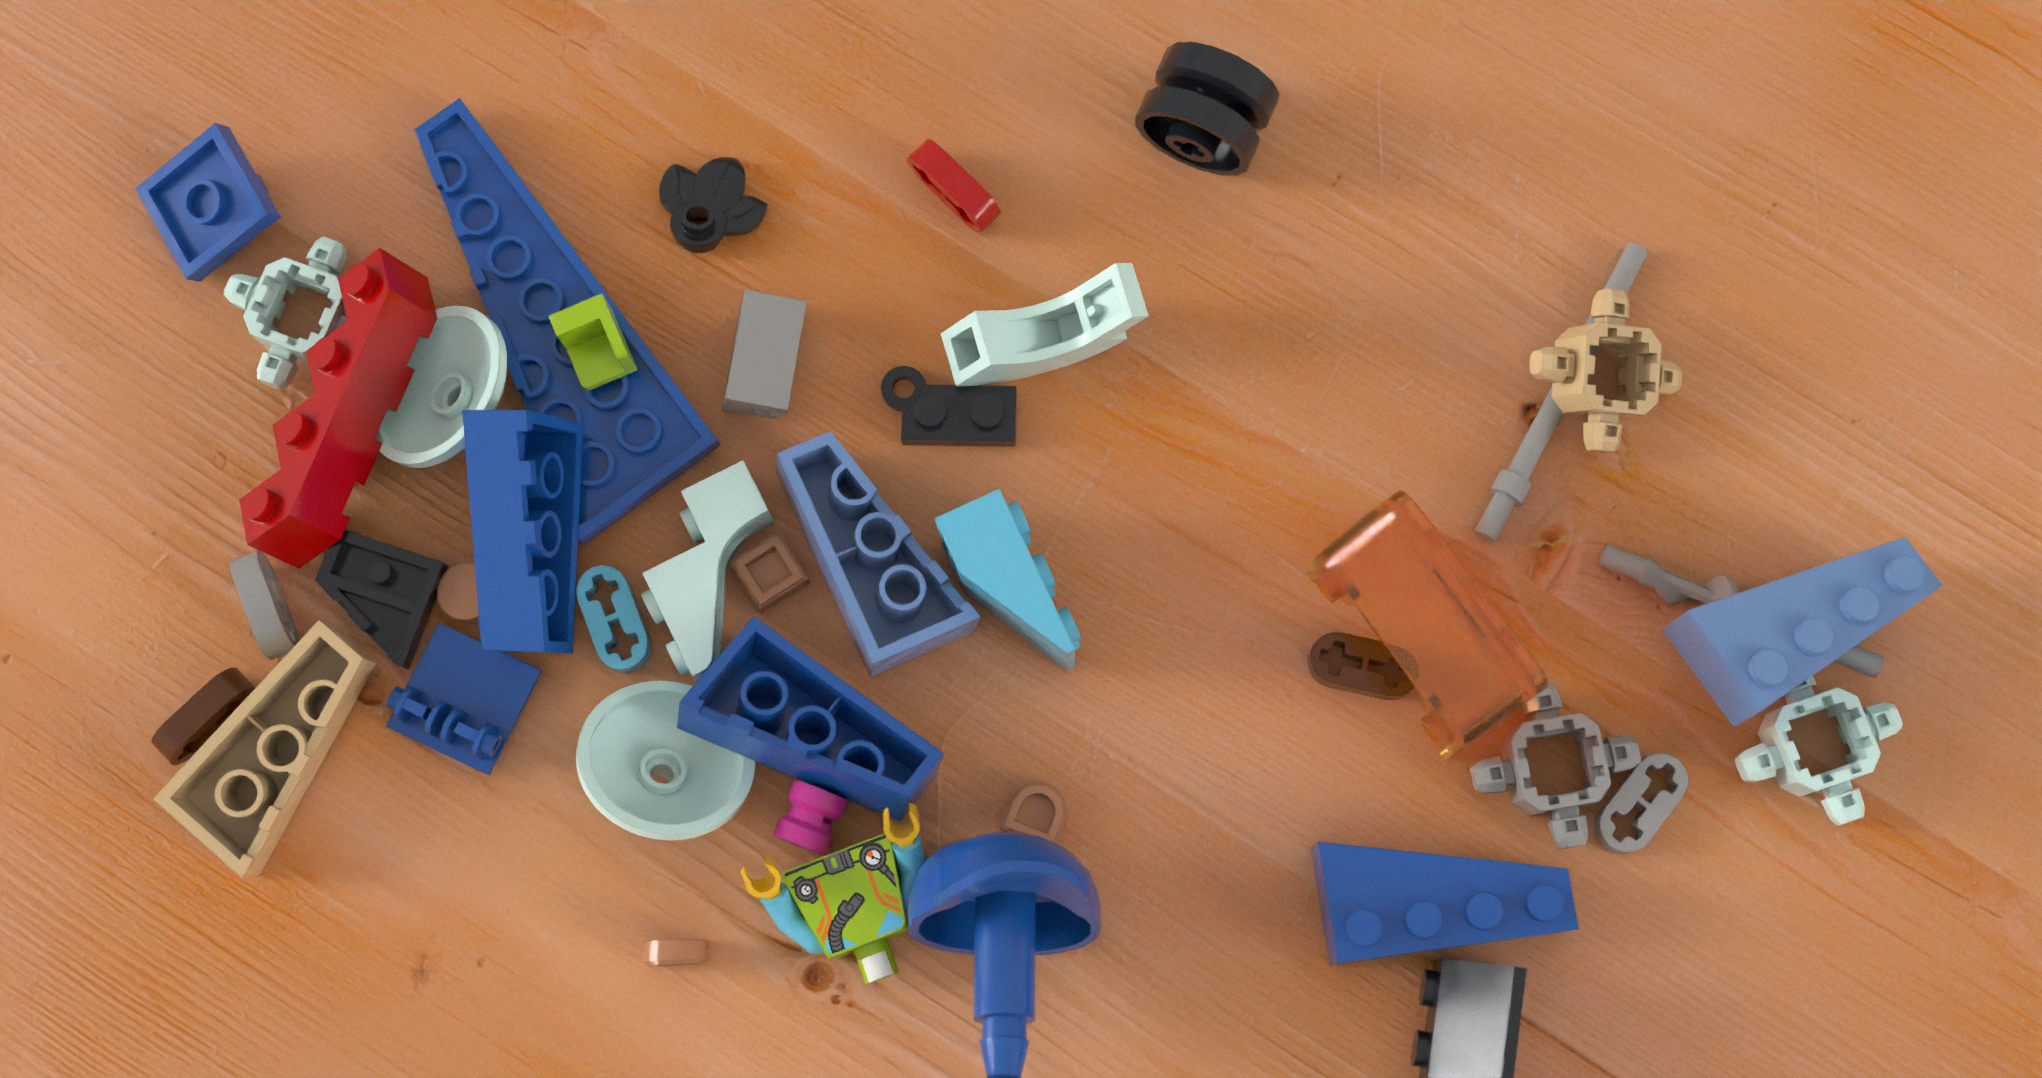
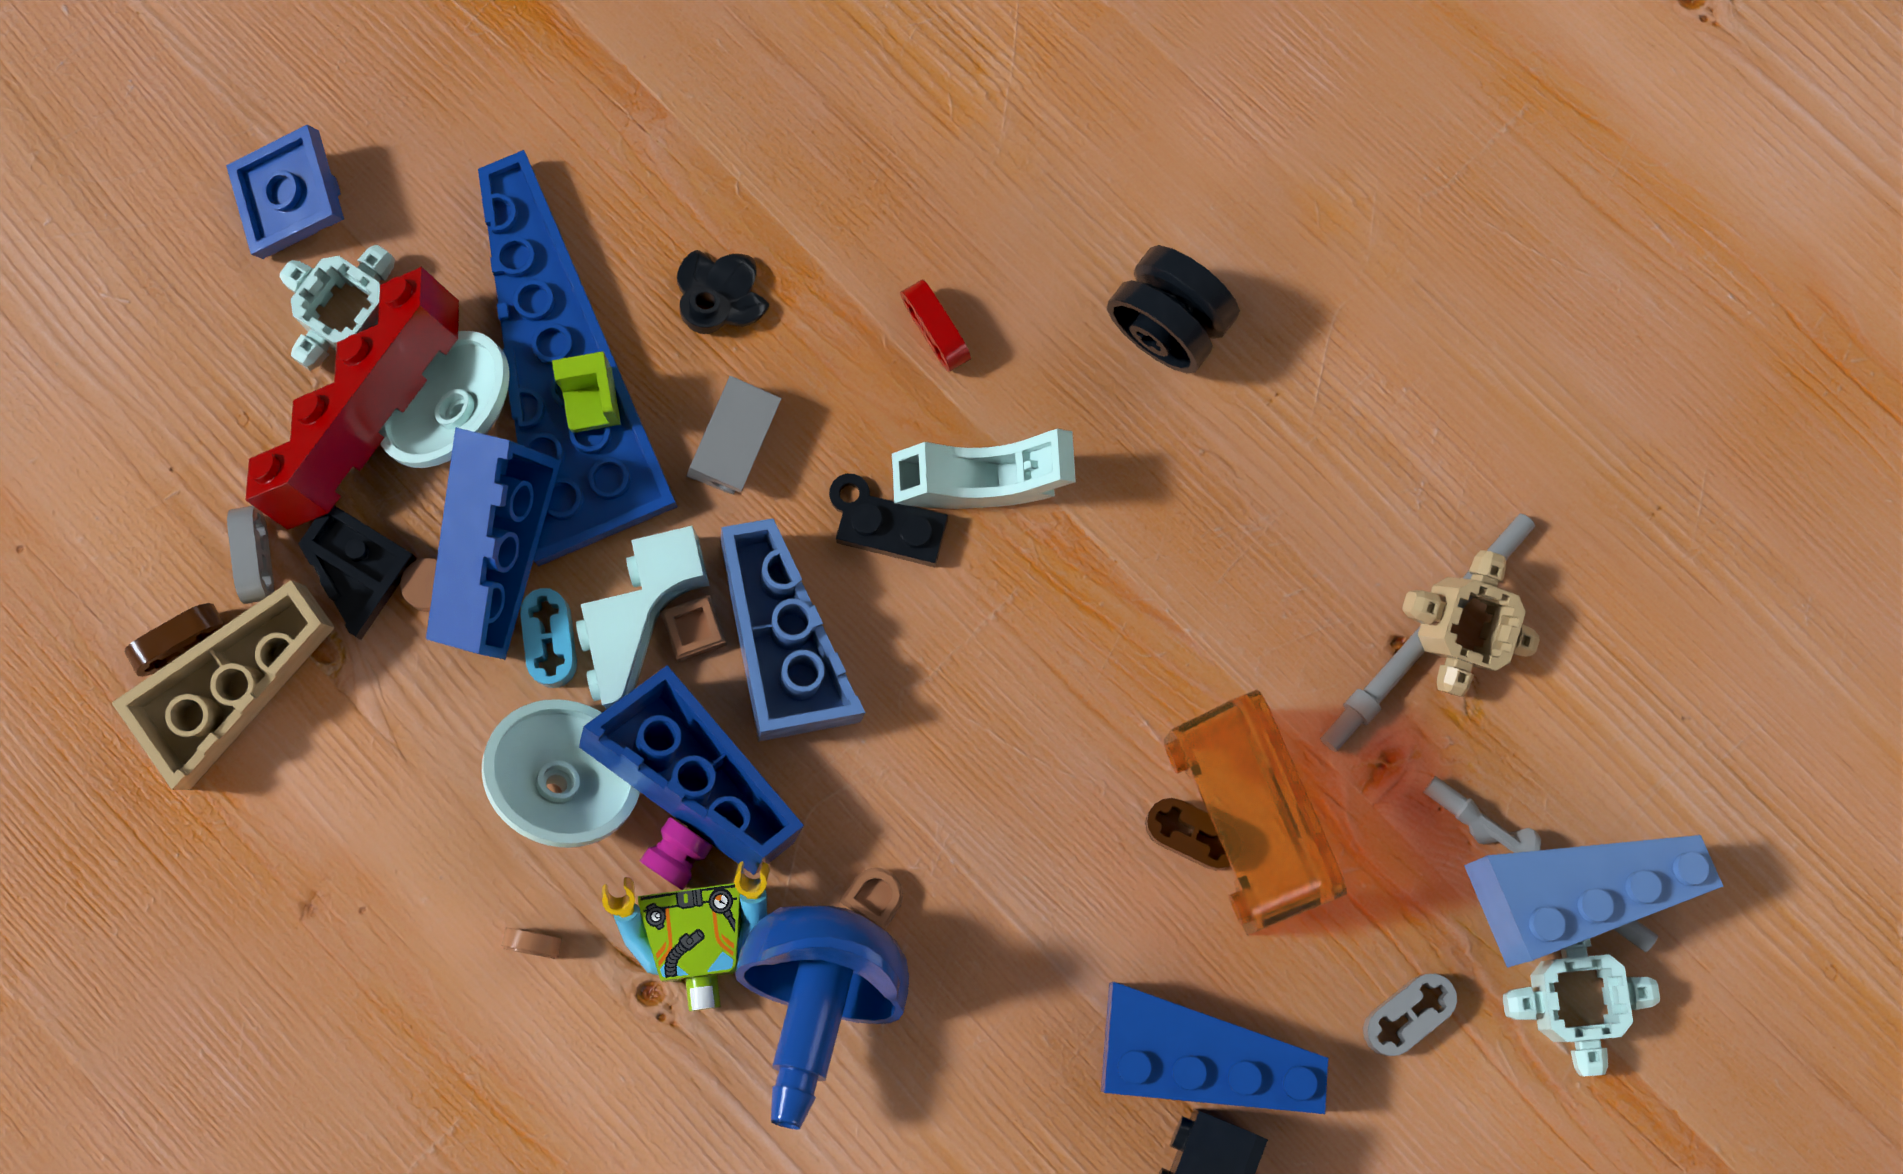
camera: 10 degrees right, 0 degrees up
(462, 699) = (400, 677): blue hinge -> none
(995, 569) = (887, 668): medium azure slope -> none
(1596, 758) = (1398, 965): light grey piece -> none

